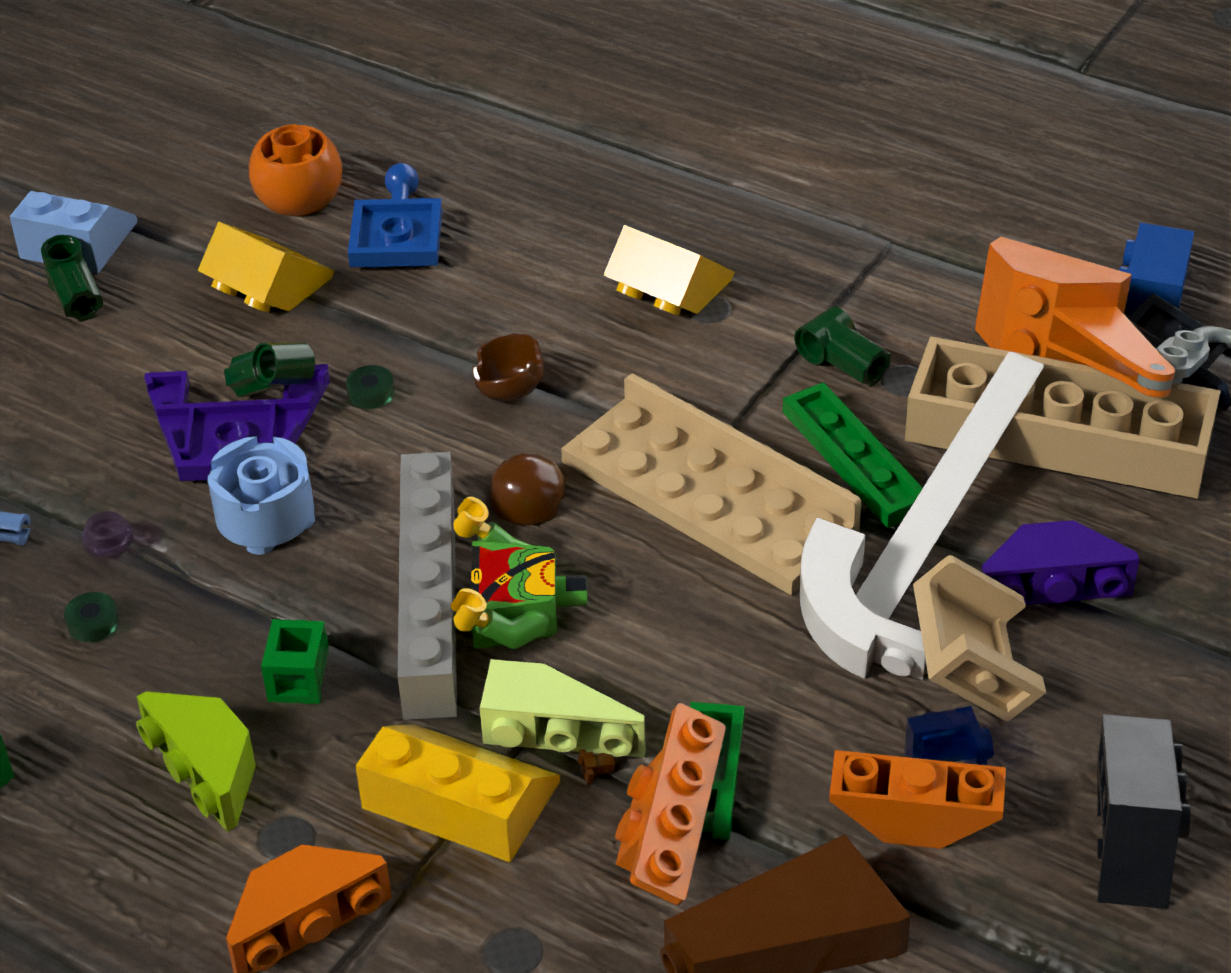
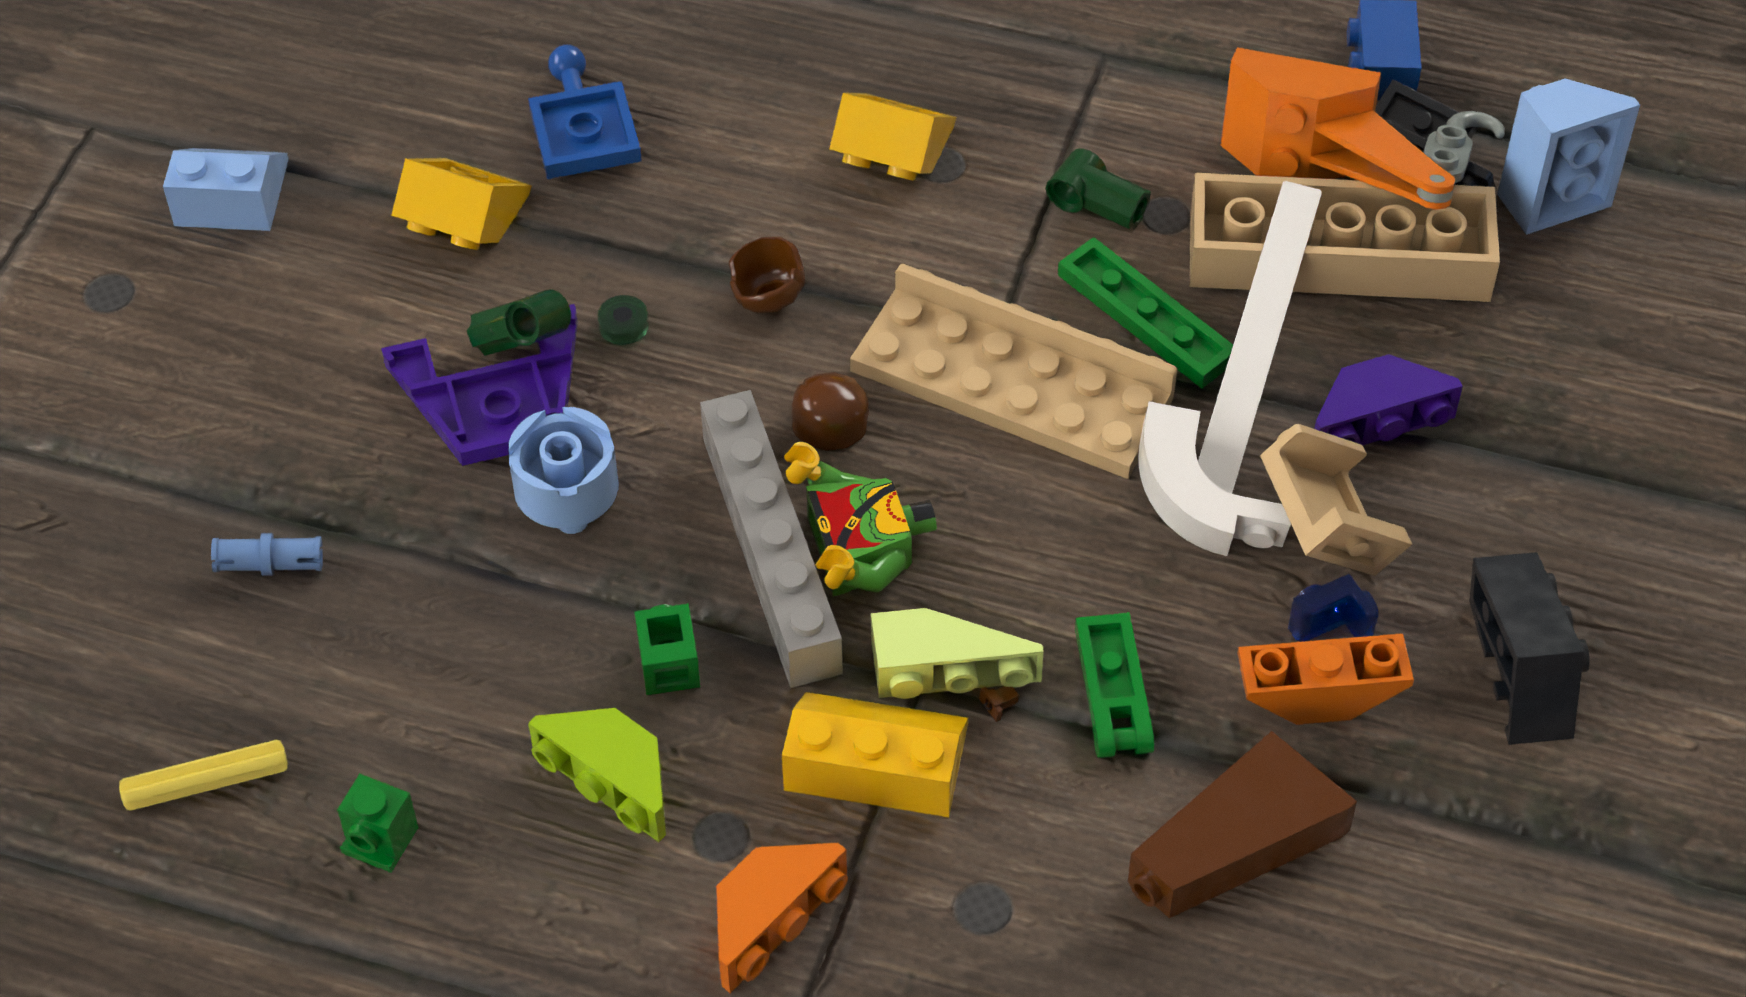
camera: 15 degrees left, 10 degrees up
(71, 277) = (251, 246): dark green piece -> none
(91, 616) = (431, 638): clear green tile -> none
(106, 534) = (411, 543): clear purple plate -> none
(295, 170) = (451, 72): orange wheel -> none
(670, 806) = (1093, 734): orange bracket -> none

